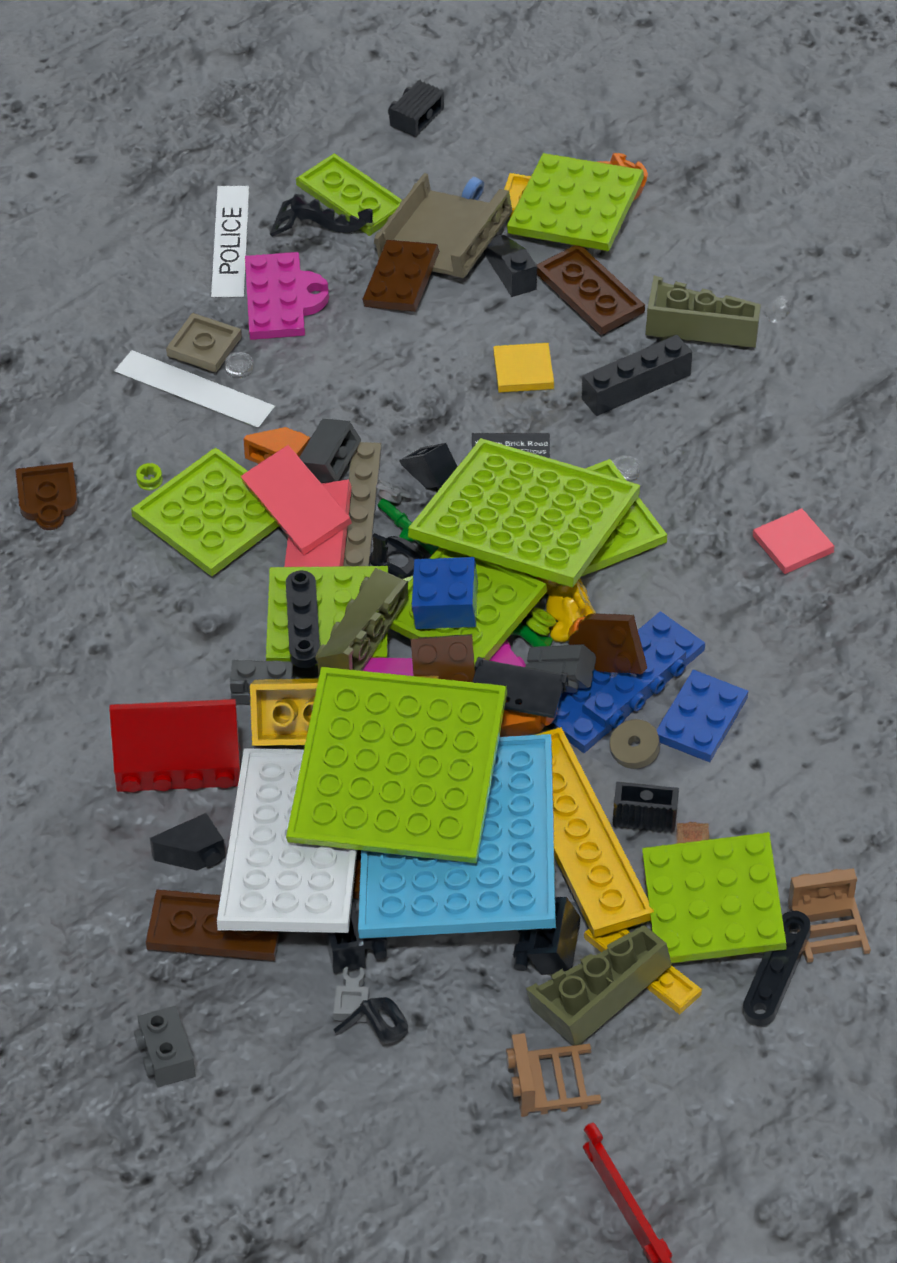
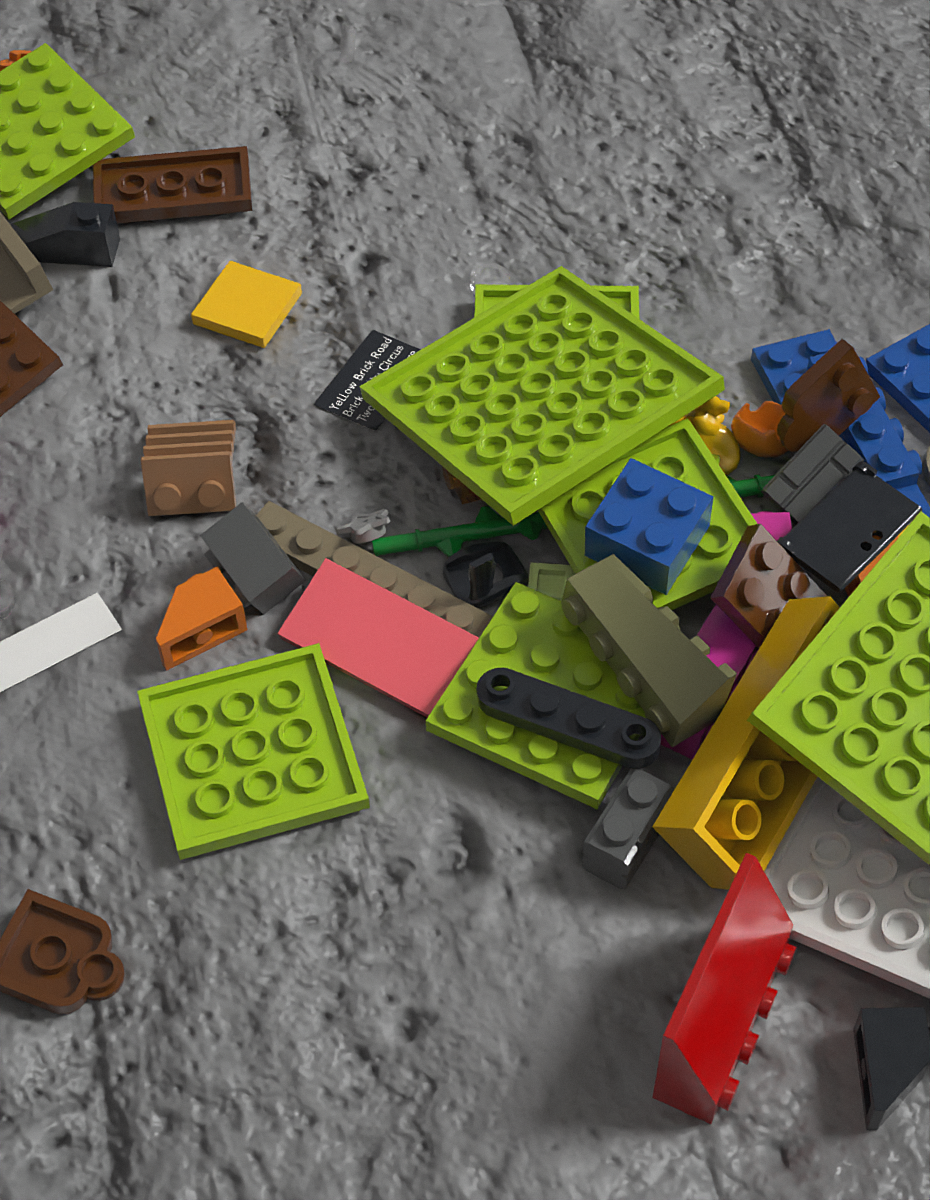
camera: 60 degrees left, 5 degrees up
(149, 469) = (120, 789): lime bush -> none
(296, 499) = (322, 633): coral tile -> none
(372, 394) = (189, 467): none -> medium nougat plate
(430, 465) = (352, 463): black slope -> none
(637, 374) = (344, 189): black wedge -> none
(701, 315) = (310, 104): olive wedge -> none
(793, 541) = (711, 188): coral tile -> none

